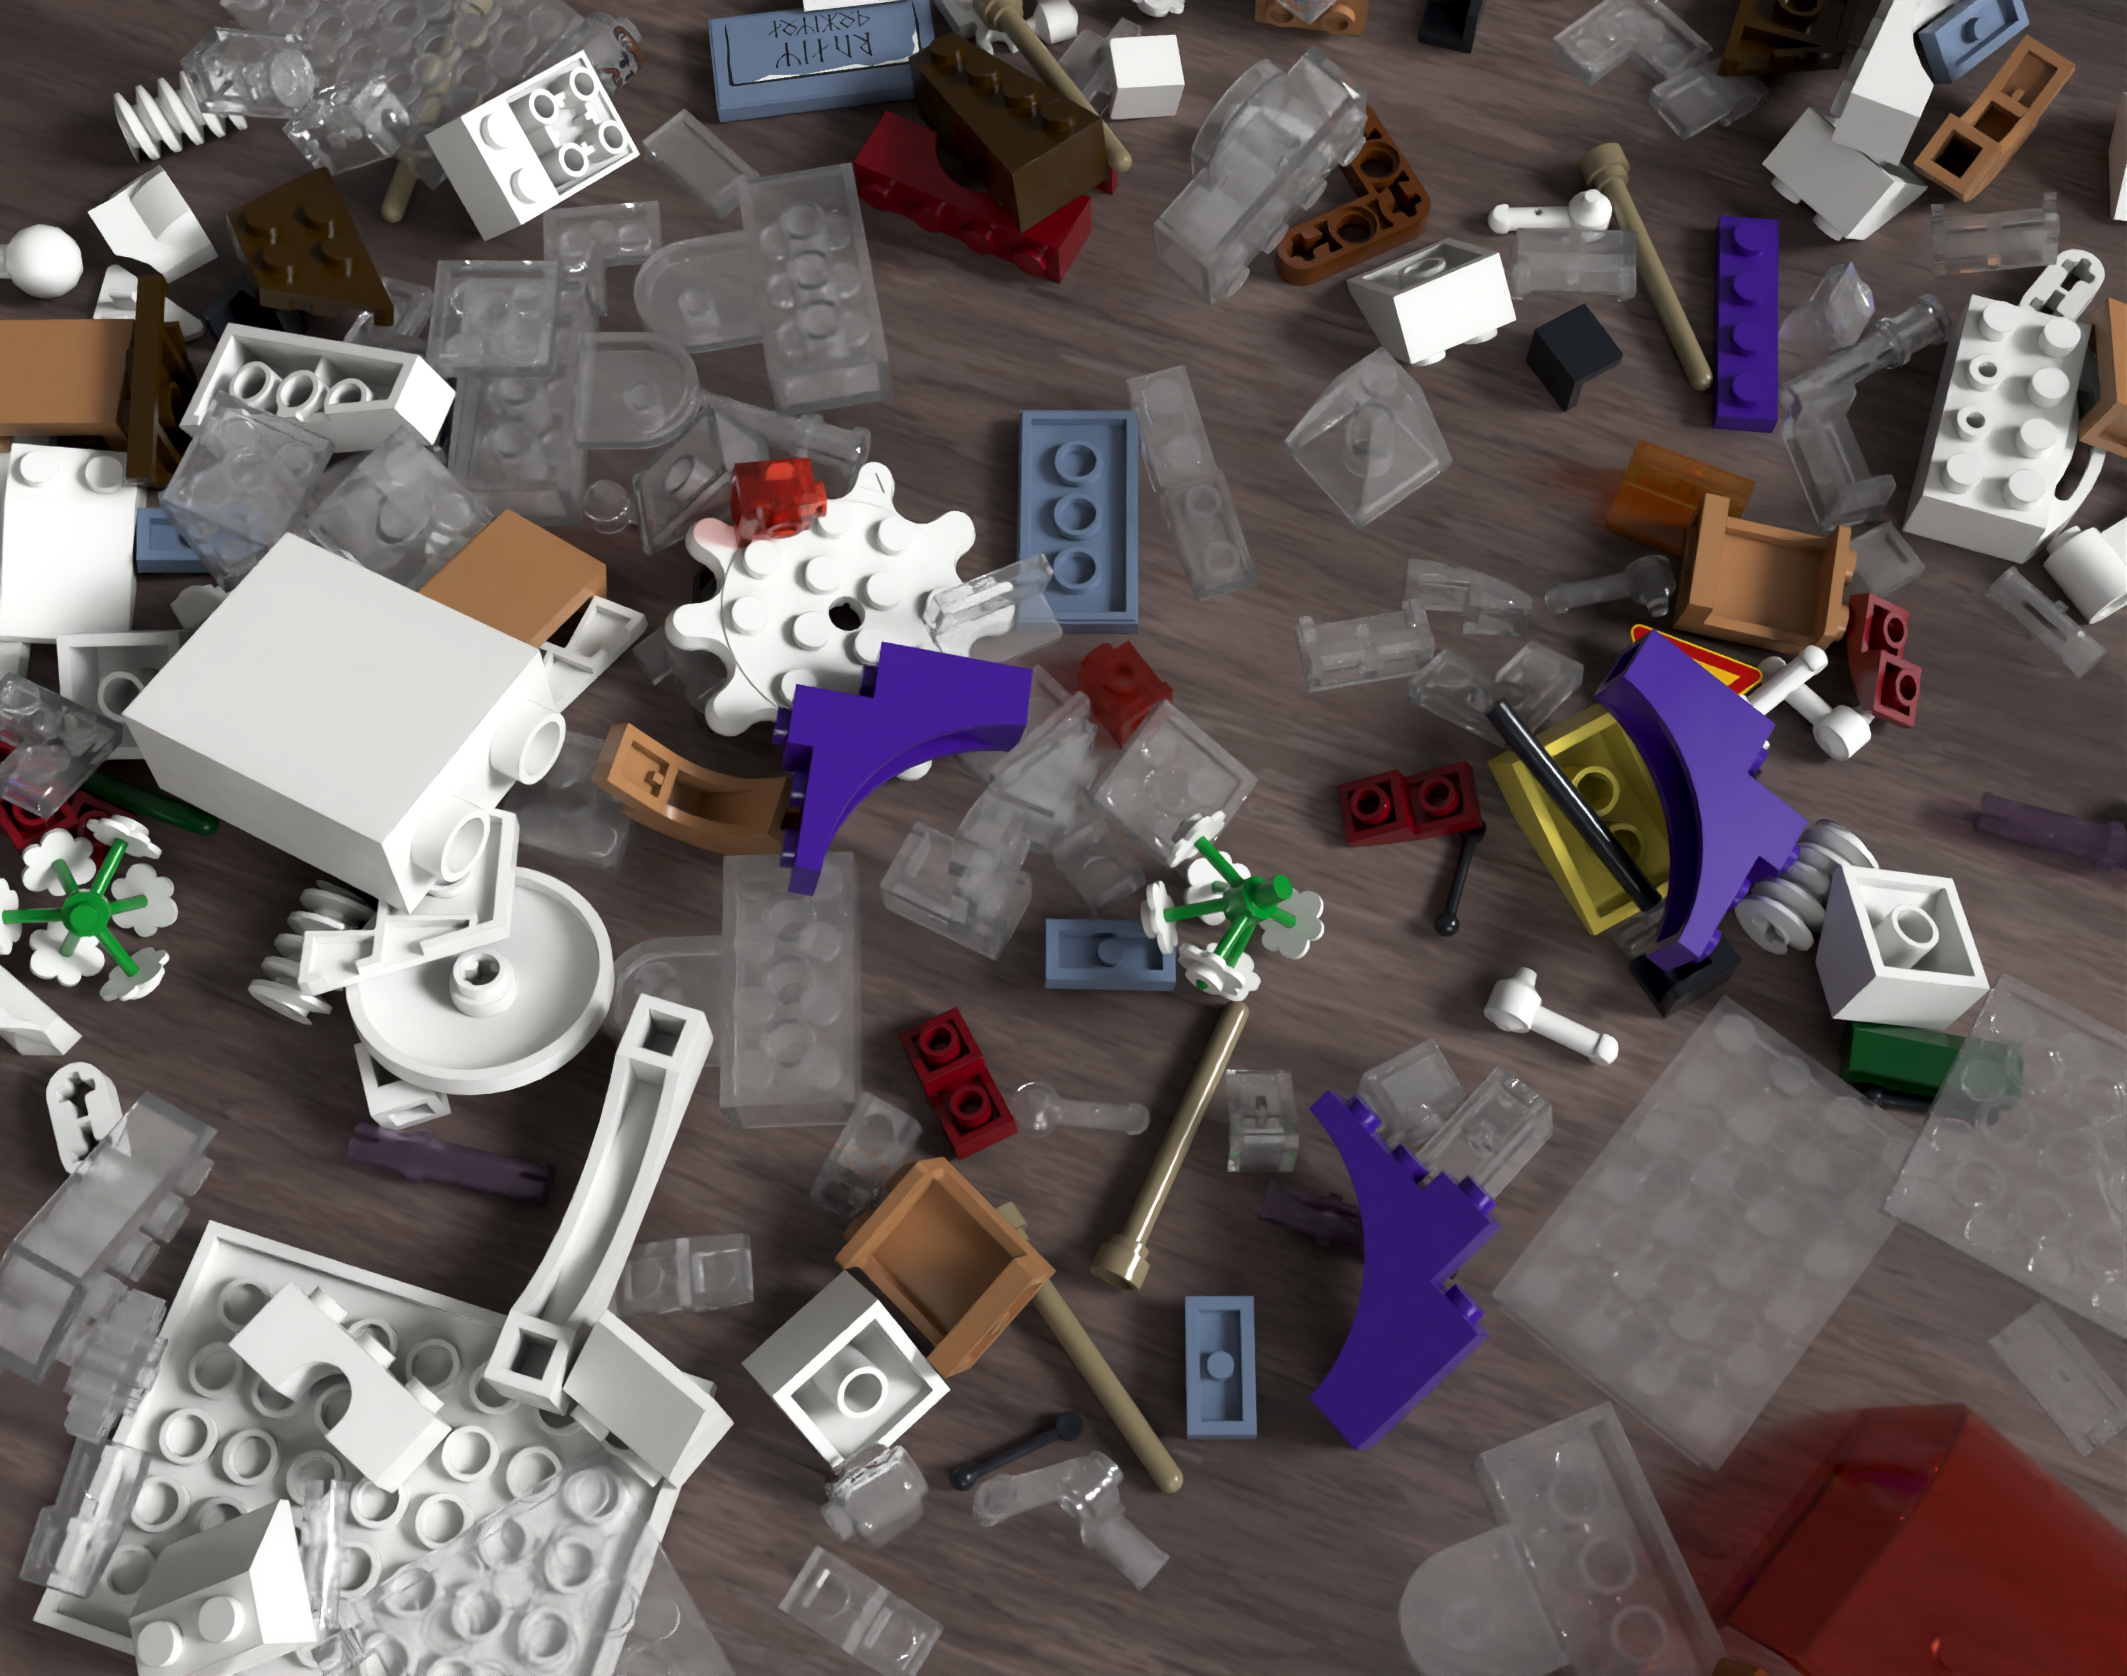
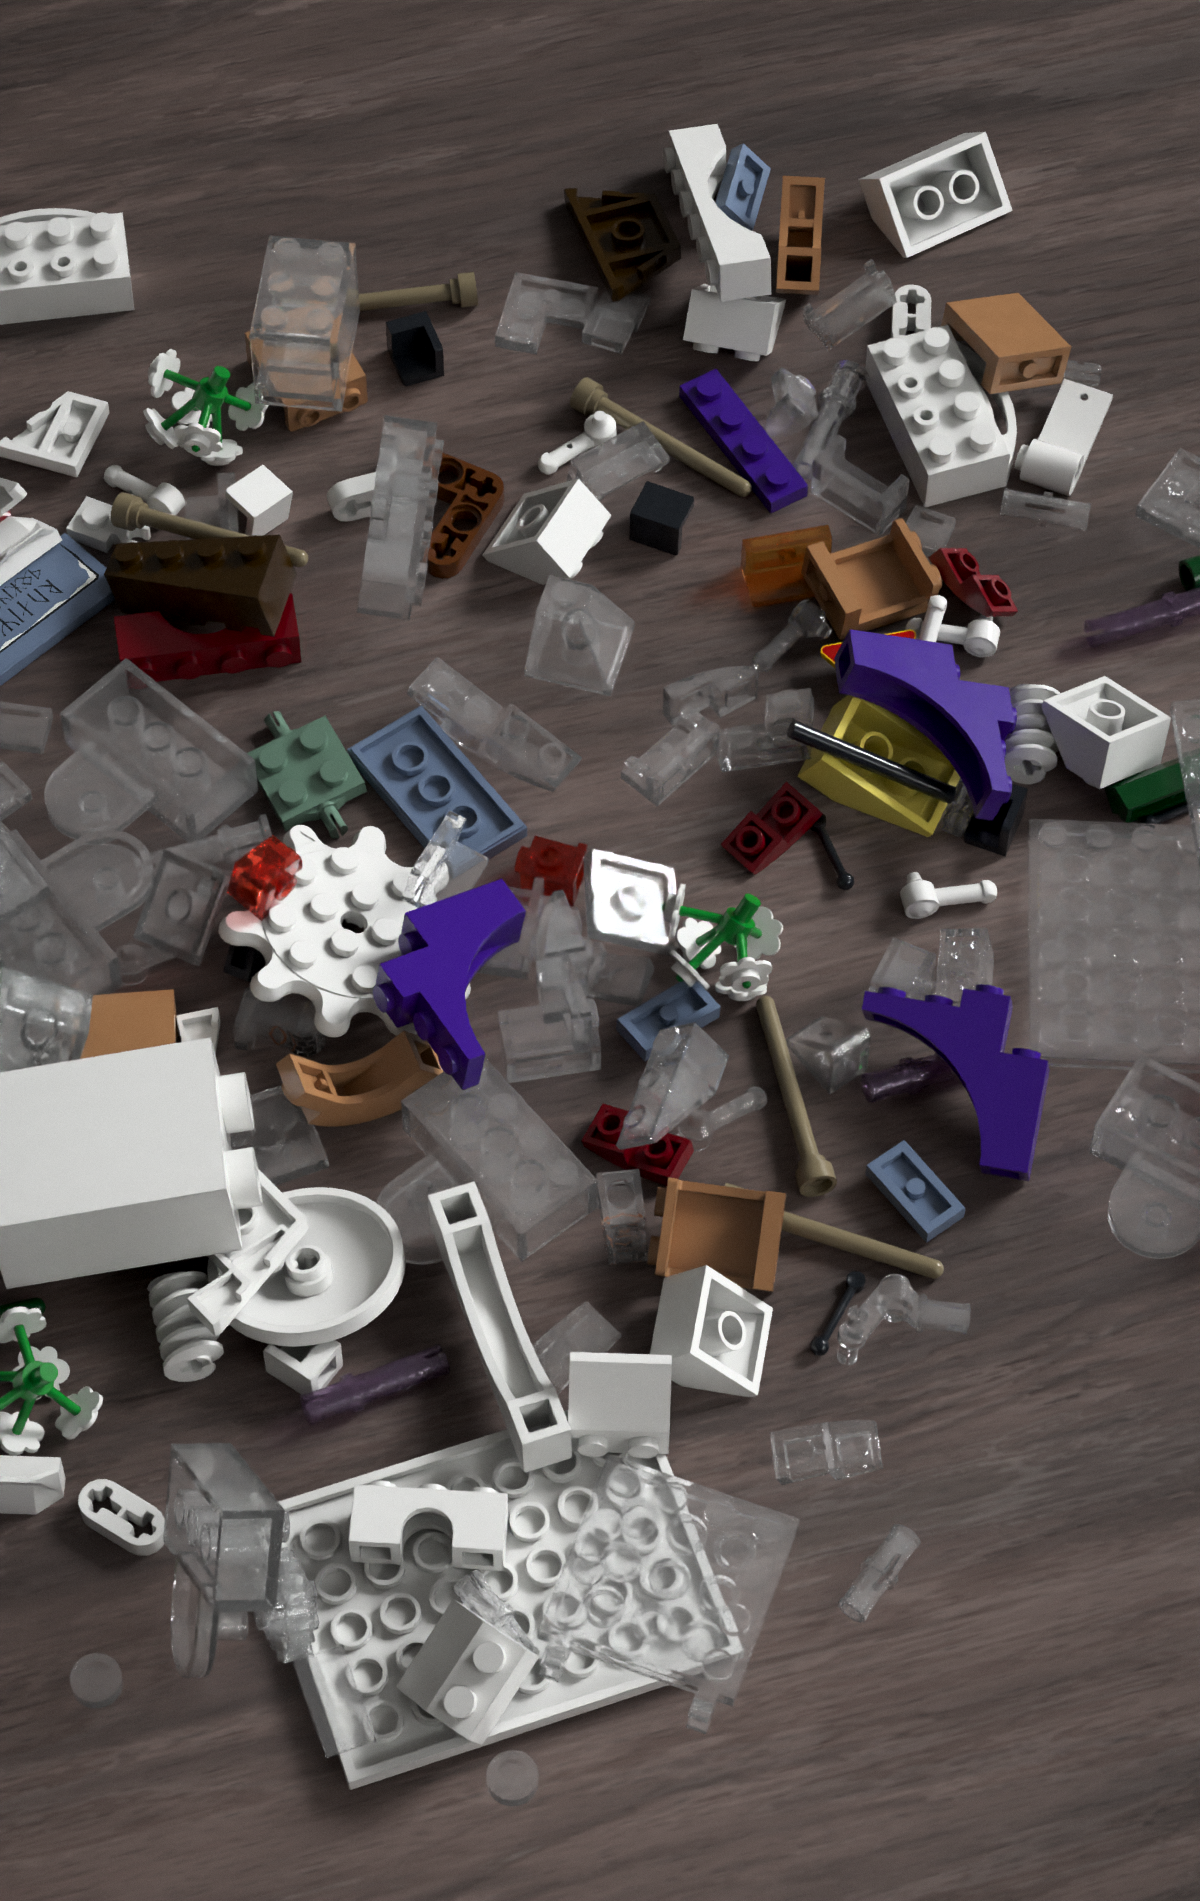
camera: 40 degrees left, 10 degrees down
(874, 1495) = (783, 1380): clear head -> none
(955, 410) = (306, 774): none -> sand green plate
(1040, 1045) = (675, 1083): none -> clear slope

